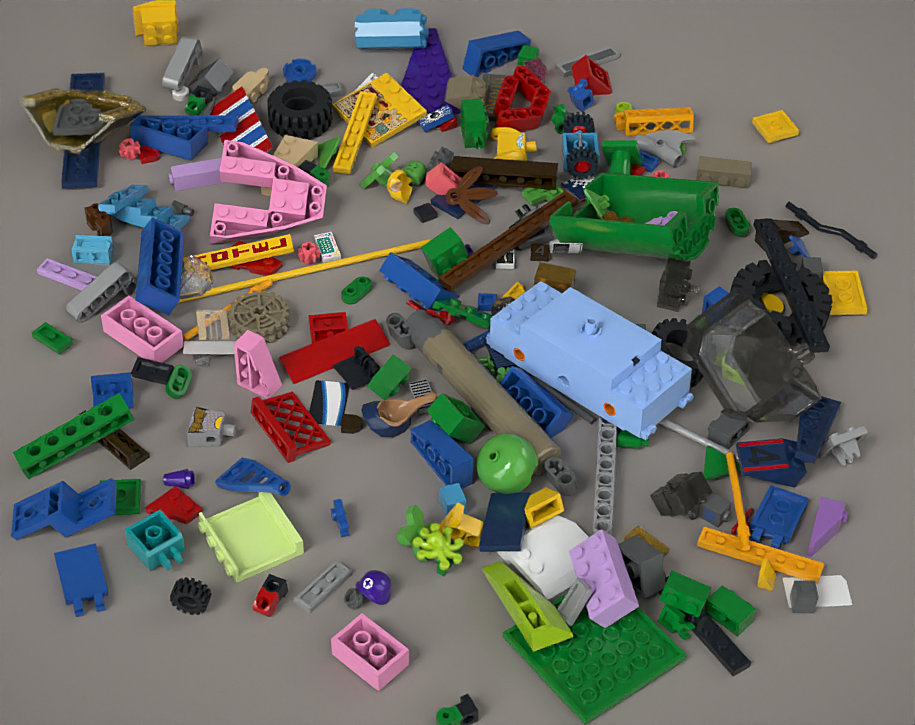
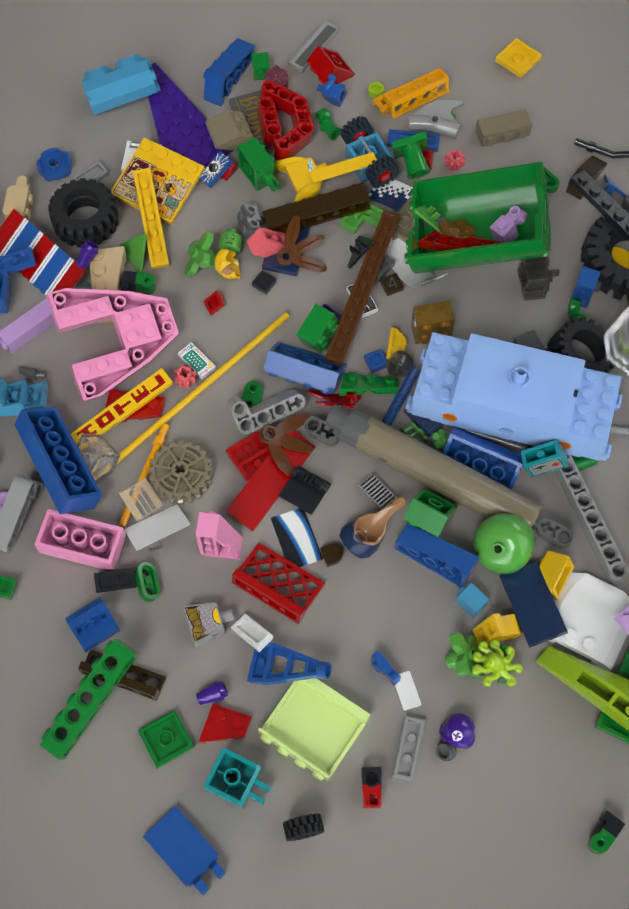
camera: 25 degrees left, 20 degrees up
(64, 509) = (128, 787): blue bracket -> none
(242, 449) = (252, 632): none -> white tile
(280, 133) = (87, 254): none -> dark purple cone
(350, 546) = (407, 691): none -> white sticker
(359, 322) = (278, 439): none -> reddish brown plant
(364, 297) = (290, 401): none -> light grey beam
(370, 652) = (498, 807): bright pink brick -> none
(371, 211) = (214, 302): none -> red slope
(389, 377) = (342, 490): green brick -> none
(545, 147) = (342, 167): none -> yellow sticker
(586, 415) = (544, 458): none -> teal brick

